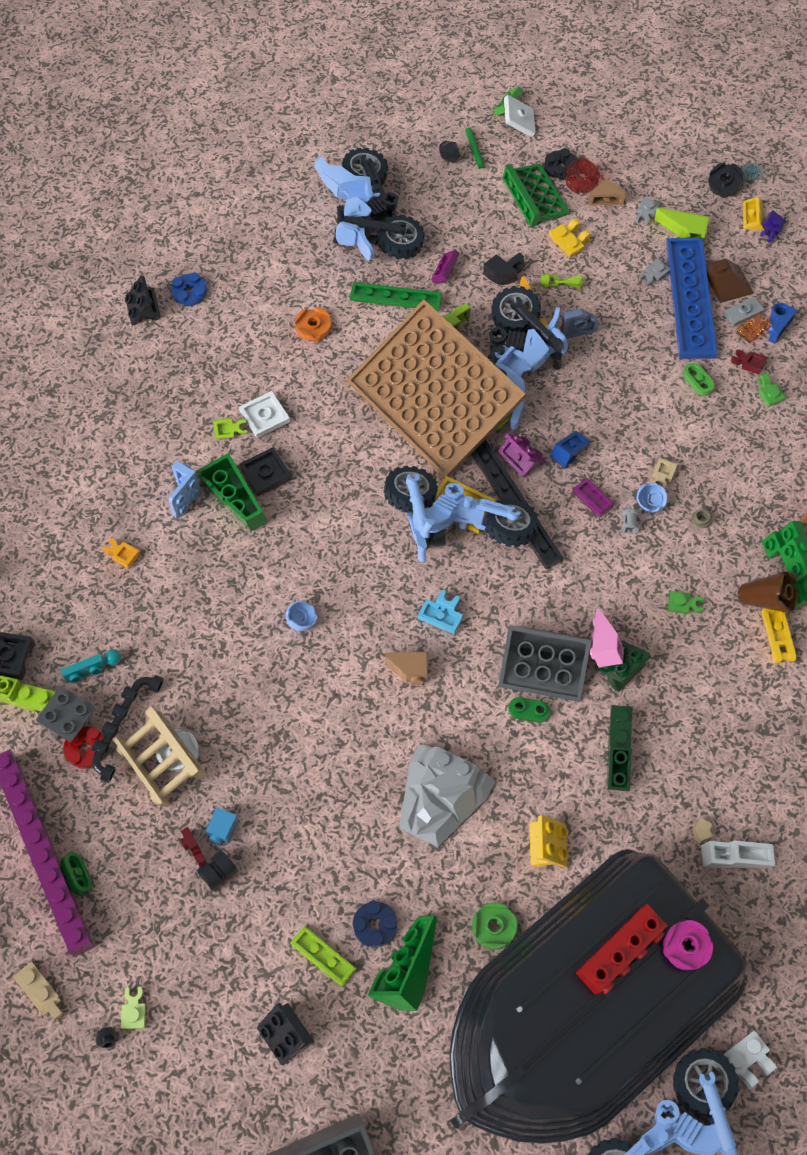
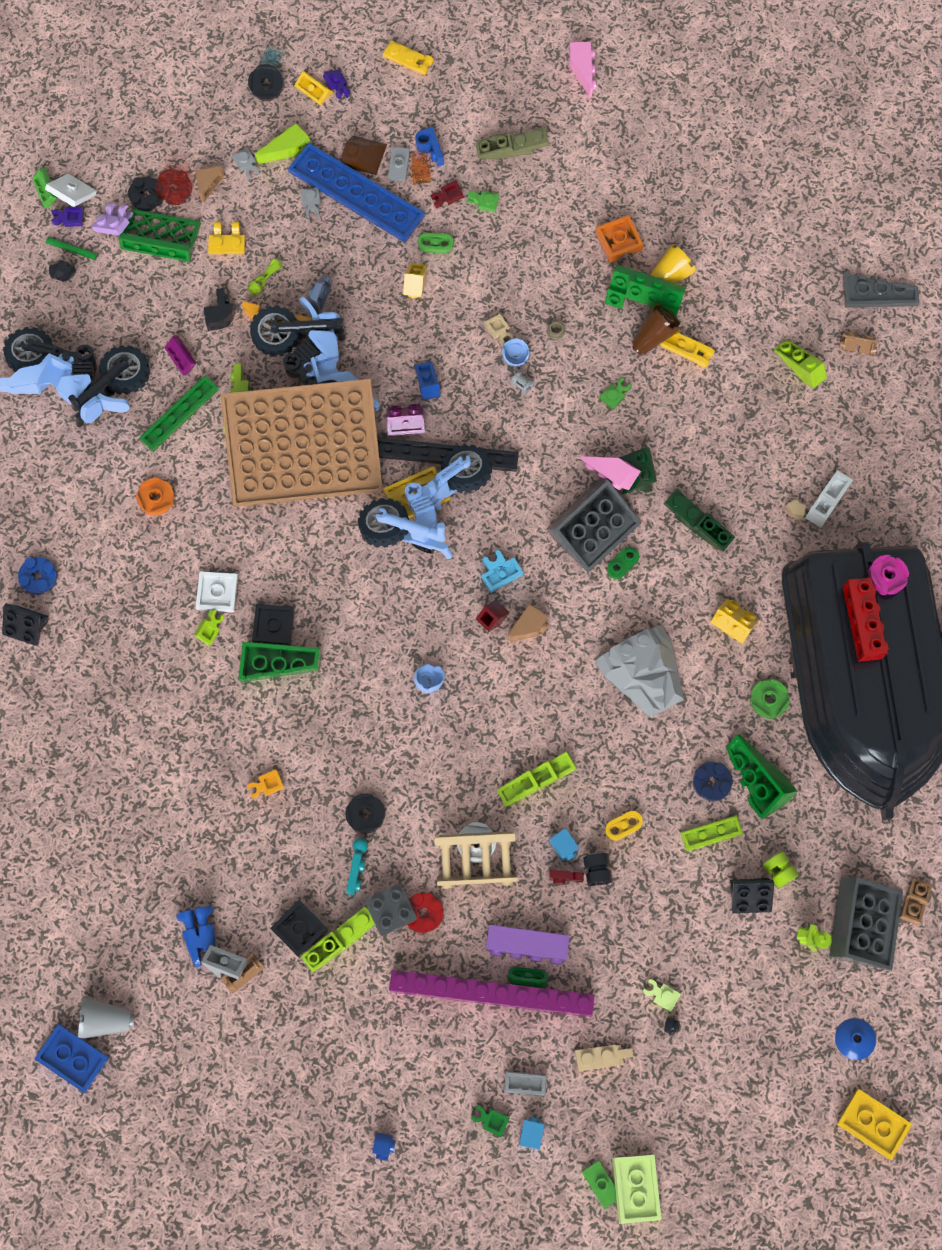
camera: 55 degrees left, 10 degrees up
(108, 853) = (527, 943): none -> medium lavender brick
(111, 729) = (425, 880): black bar -> none
(147, 654) = (356, 806): none -> black plate
(187, 489) = (240, 689): light blue bracket -> none
(270, 764) = (537, 779): none -> lime slope
(276, 1122) = (814, 938): none -> lime hips
(277, 868) = (623, 825): none -> yellow plate
(327, 1045) = (787, 871): none -> lime wheel
(395, 630) = (492, 615): none -> dark red brick
(498, 131) = (71, 216): none -> dark purple plate
(517, 156) = (113, 221): none -> lavender plate
(593, 497) = (481, 394): magenta plate -> none
(651, 383) = (415, 280): none -> yellow slope

